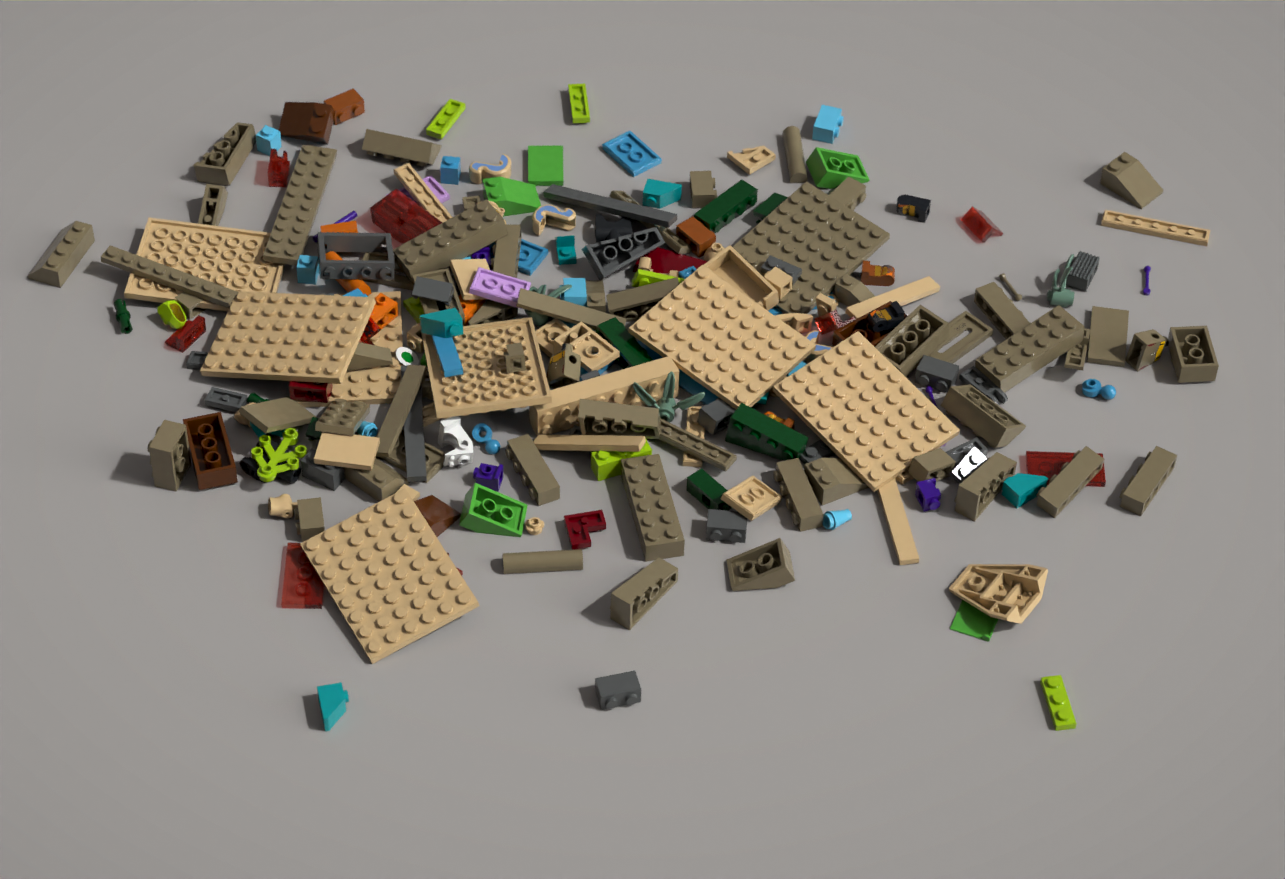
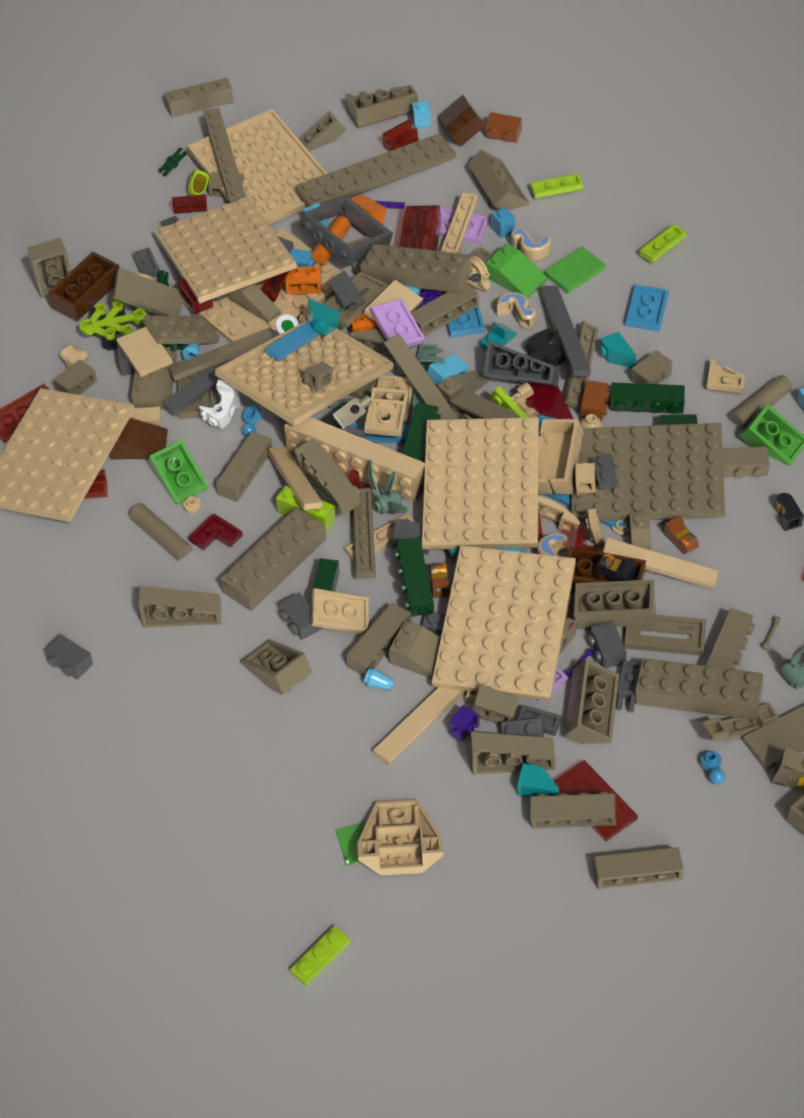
camera: 55 degrees right, 5 degrees up
(489, 476) = (211, 443): dark purple brick -> none

